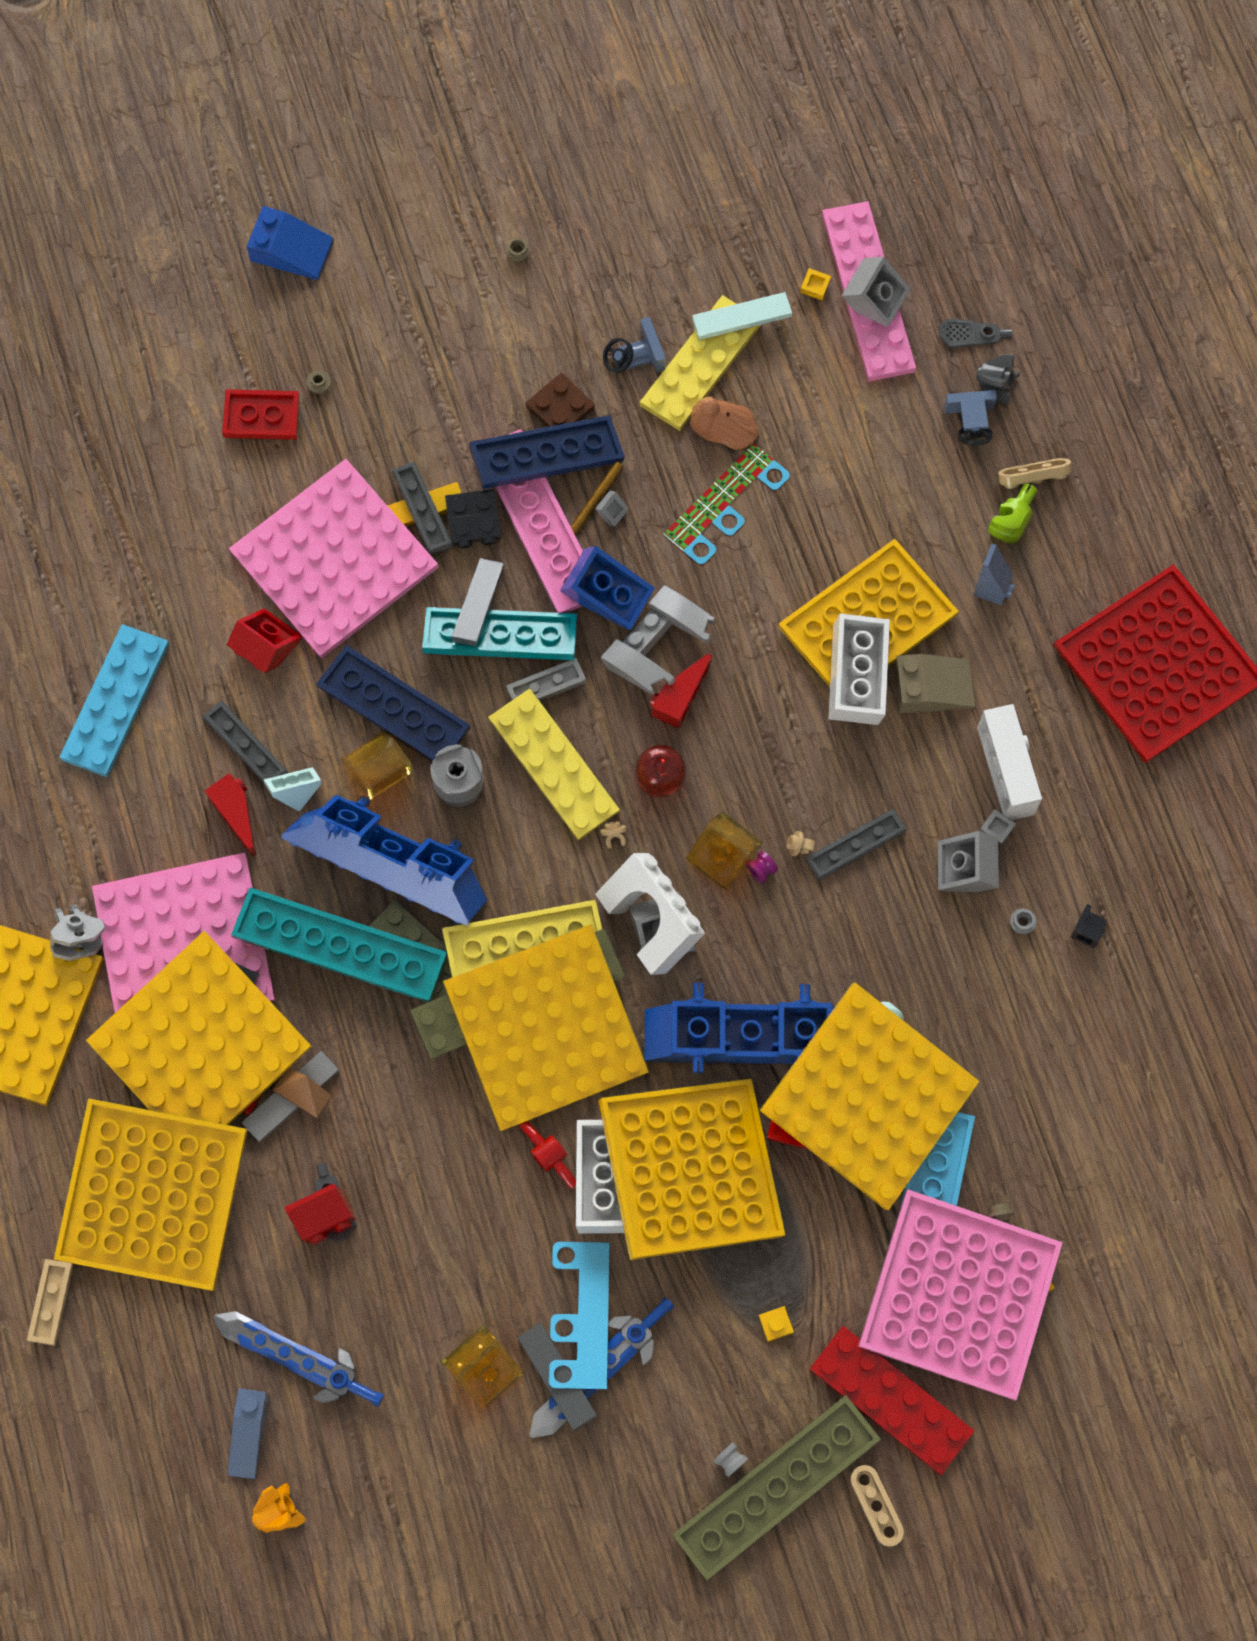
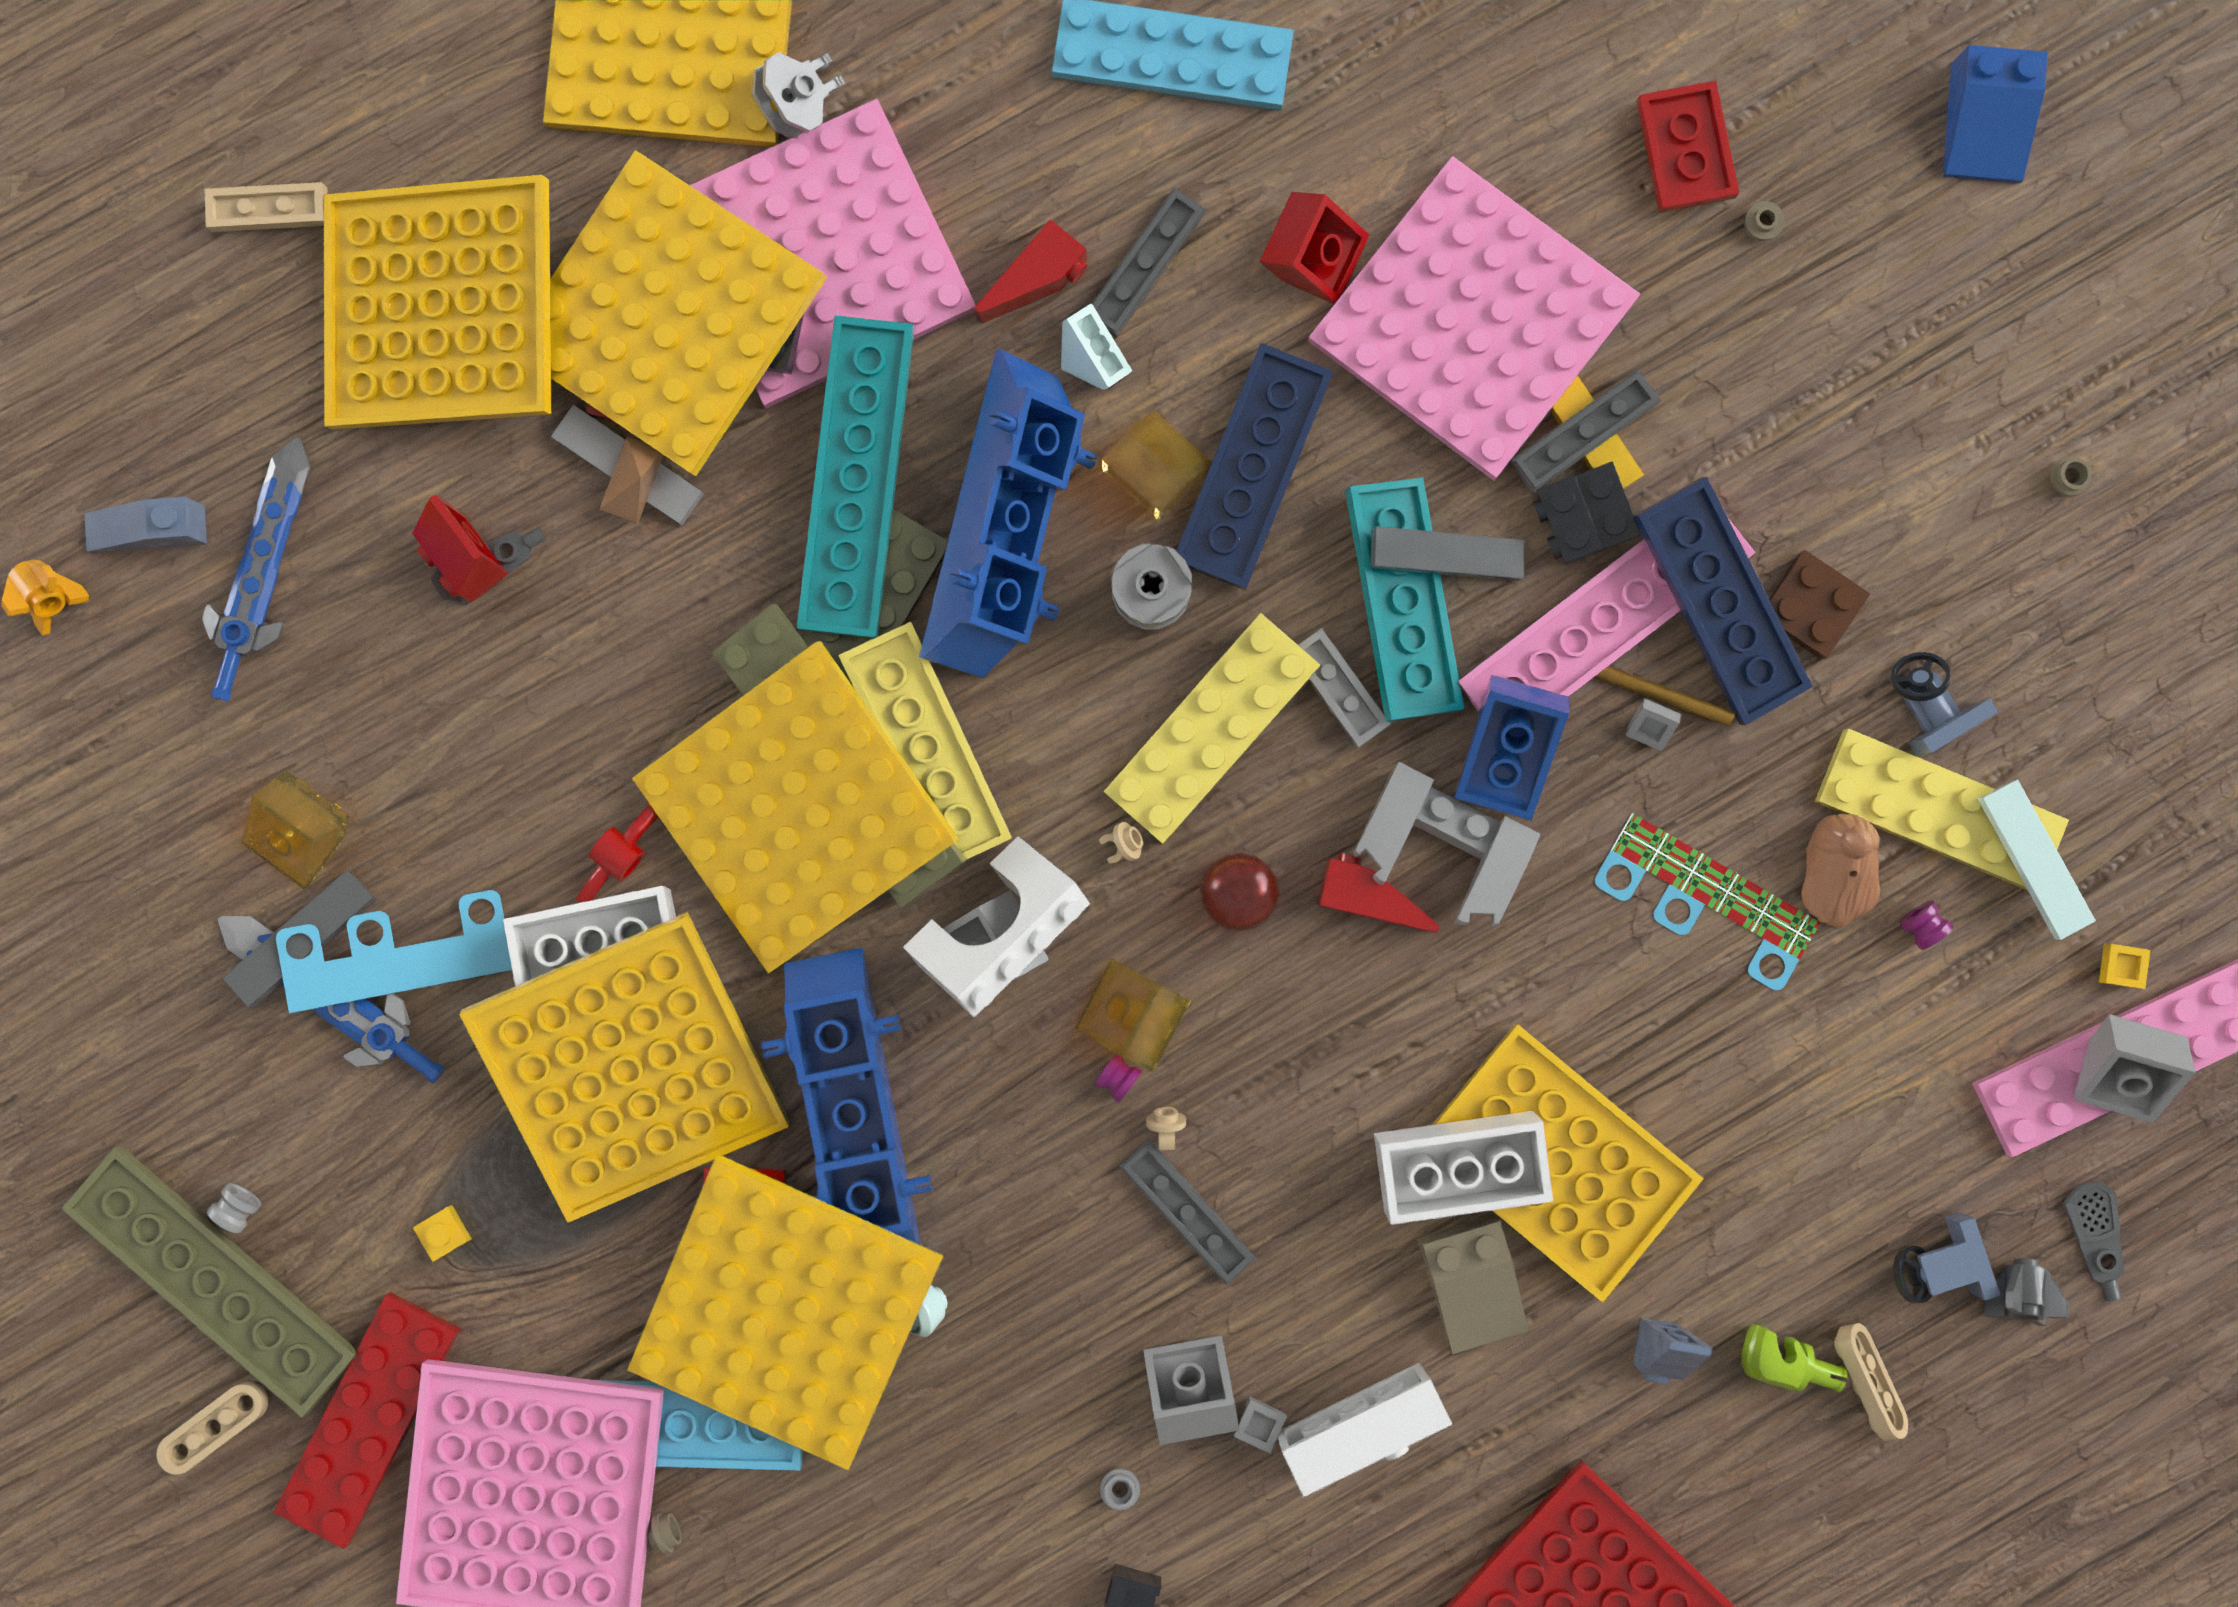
camera: 80 degrees right, 15 degrees up
(768, 384) = (1926, 925): none -> magenta wheel

